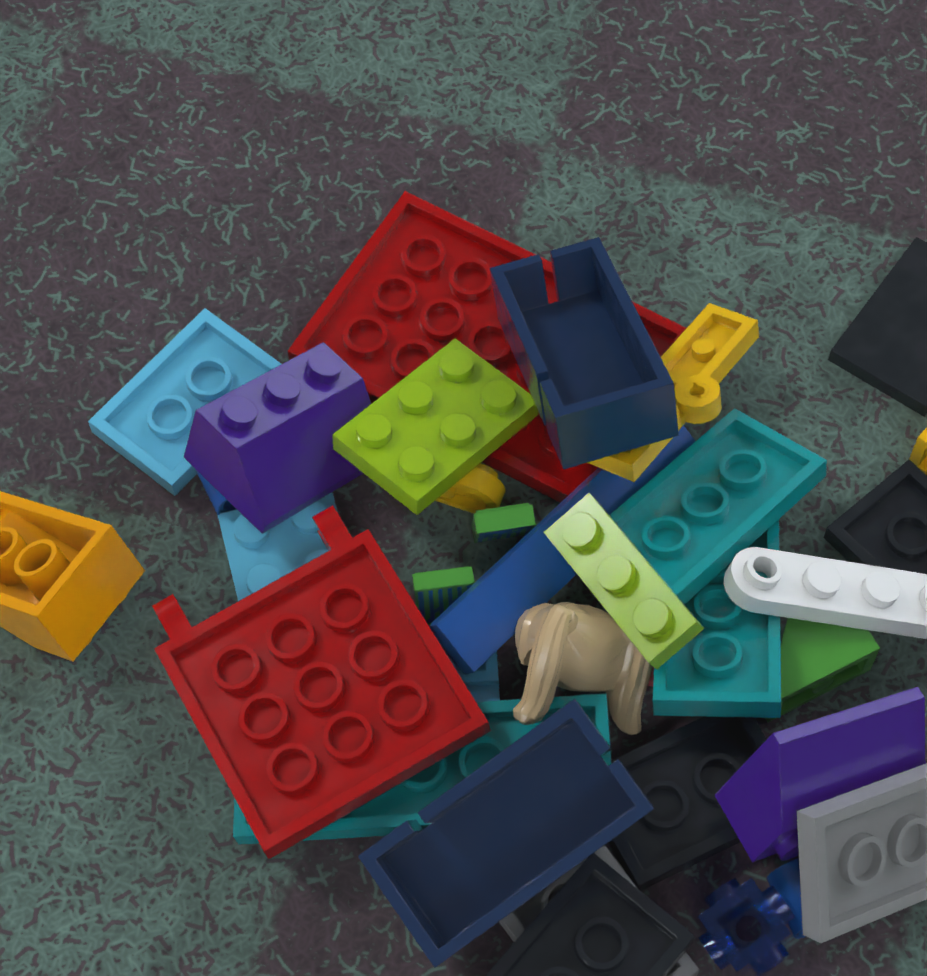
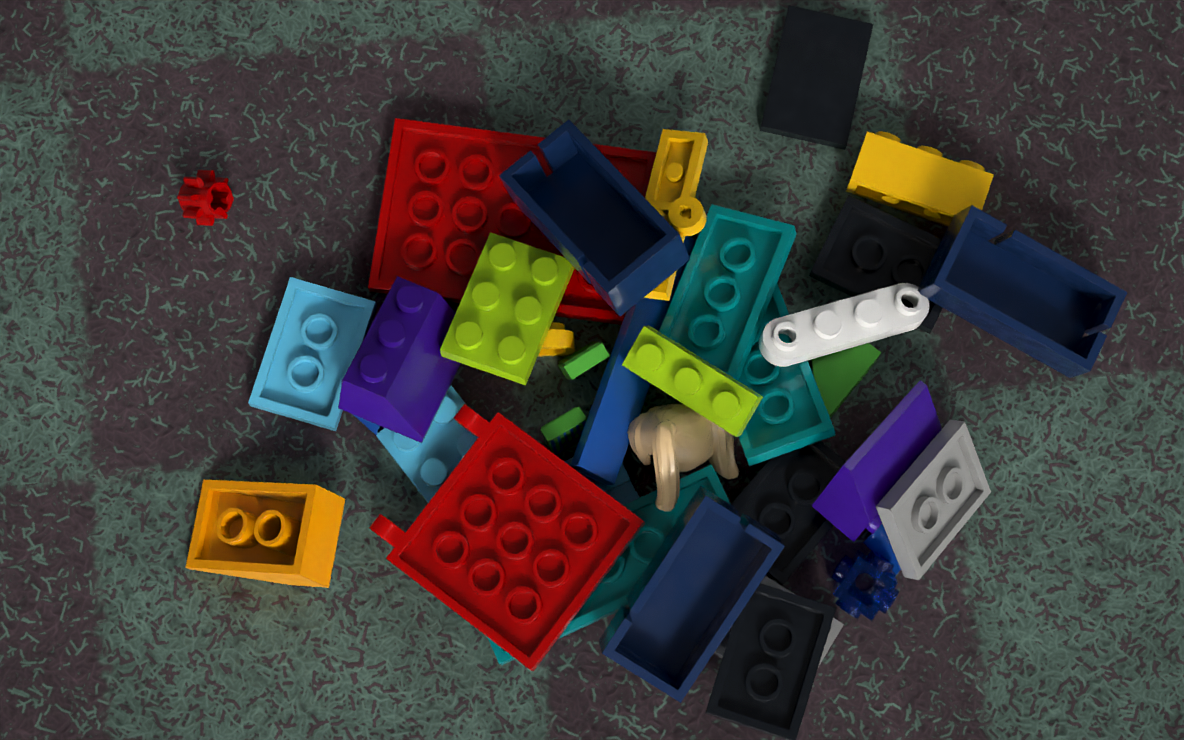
camera: 25 degrees left, 15 degrees up
(149, 182) = (205, 197): none -> red gear

